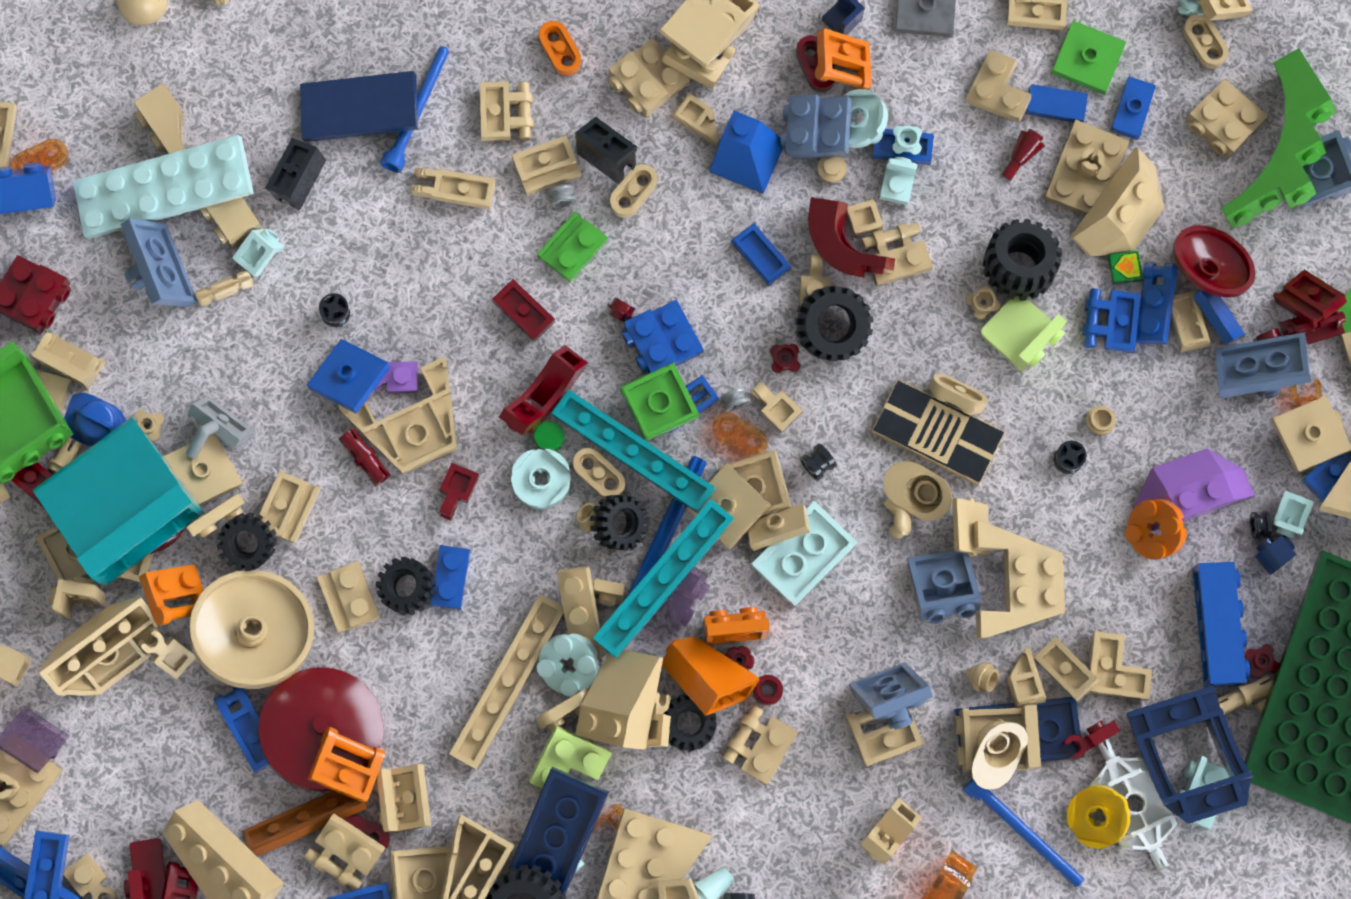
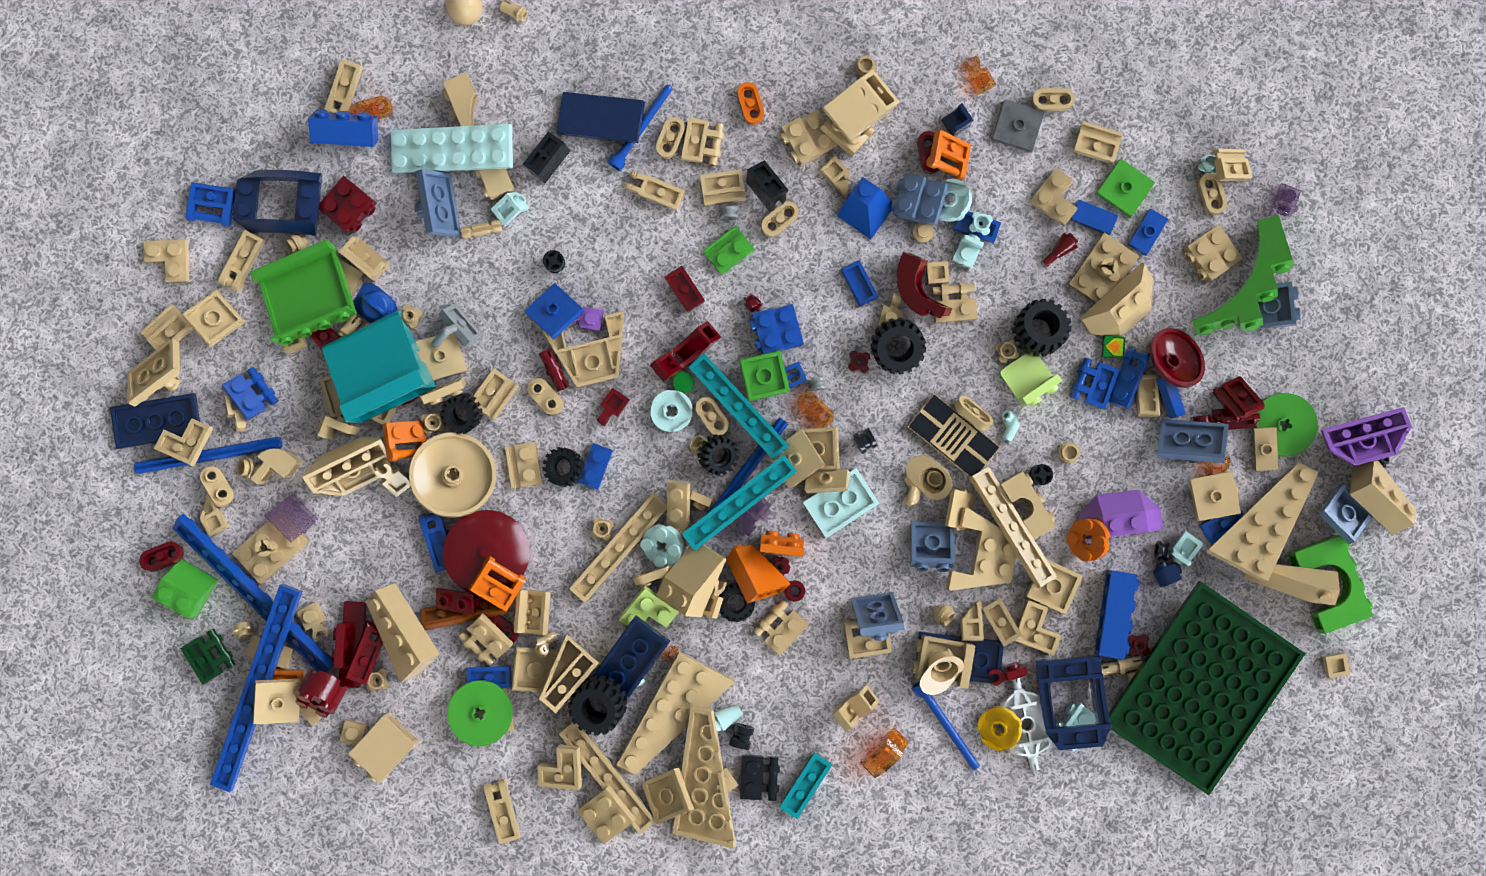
camera: 15 degrees right, 10 degrees up
(210, 556) = (436, 417): none -> tan plate
(292, 804) = (456, 601): none -> dark red hinge
(359, 495) = (545, 396): none -> tan plate
(428, 839) = (542, 643): none -> tan arm
(460, 116) = (670, 138): none -> tan plate
(472, 655) = (598, 523): none -> tan plate
(778, 409) = (846, 397): tan plate -> none
(1013, 399) = (1011, 424): none -> light aqua arm
(1046, 480) = (1038, 519): none -> tan arch
(1049, 534) = (1013, 527): none -> tan plate
(1125, 605) = (1059, 591): none -> tan plate
(1305, 29) = (1286, 200): none -> clear purple bracket

